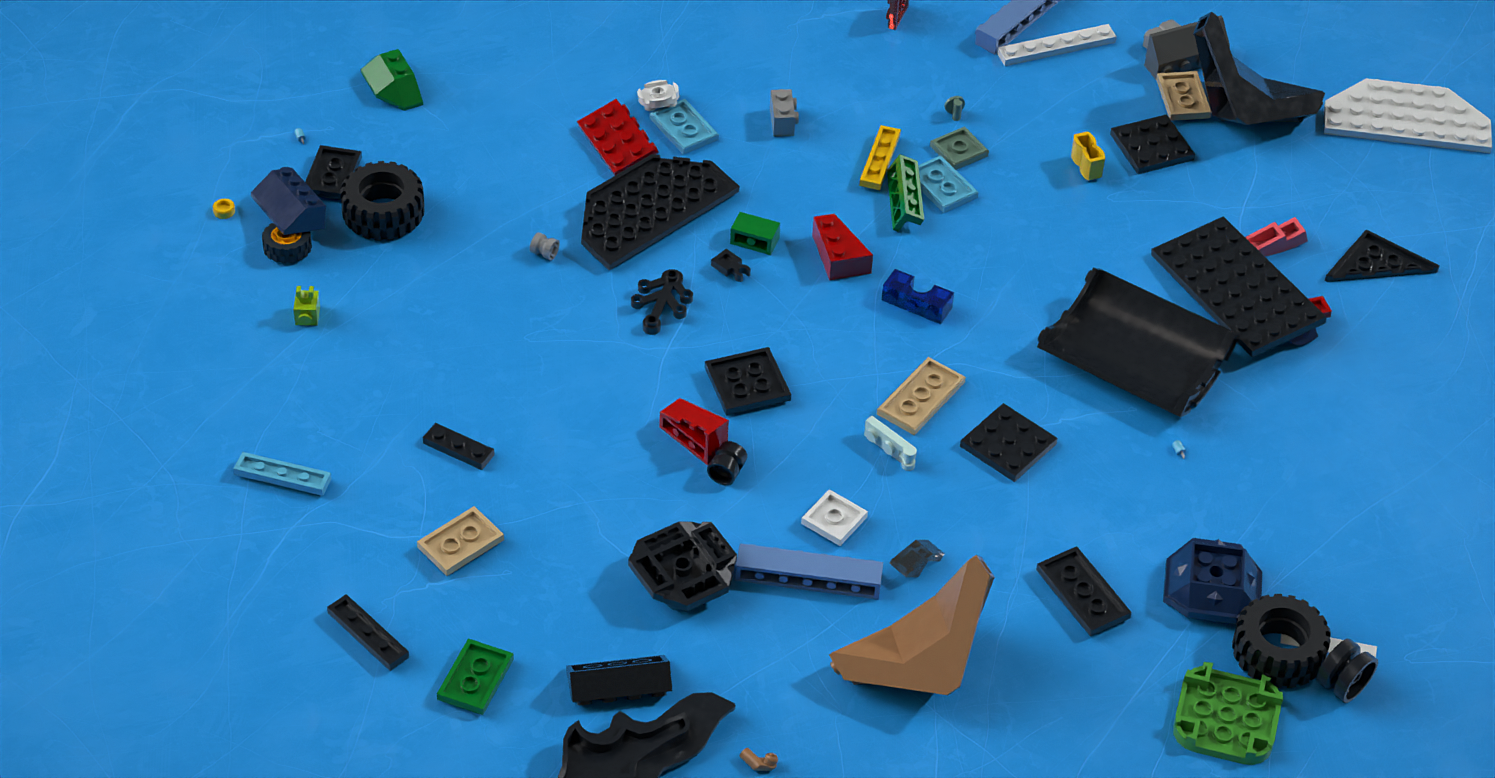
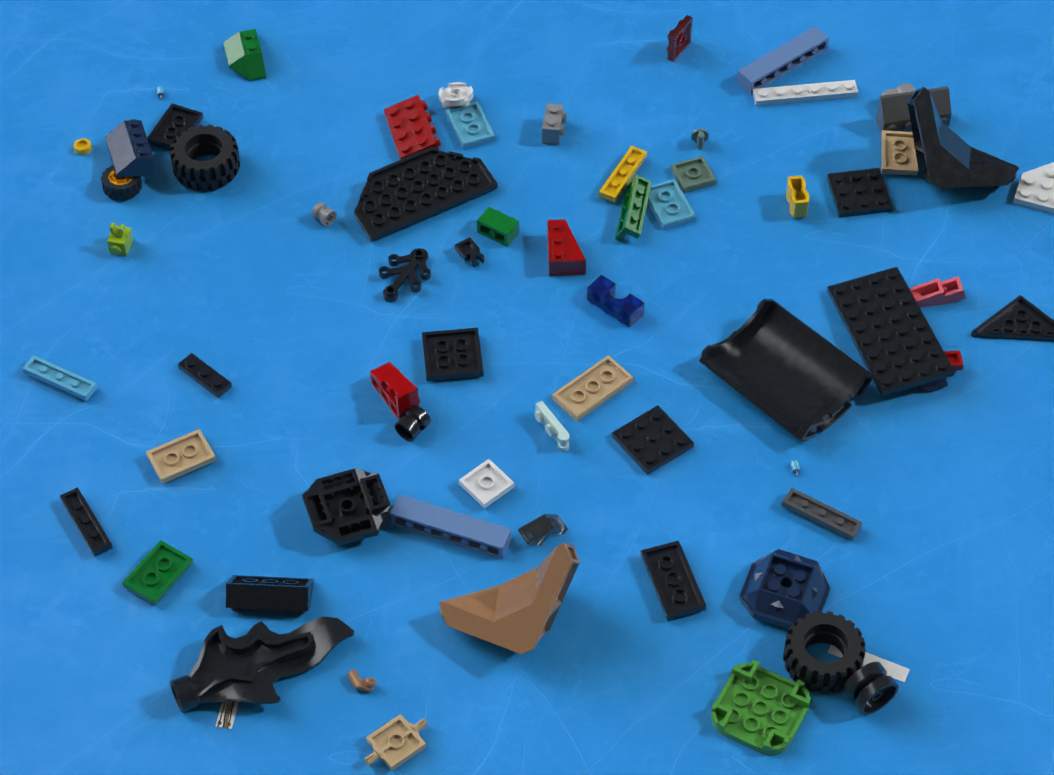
camera: 15 degrees right, 5 degrees up
(1226, 493) = (822, 514): none -> dark grey plate

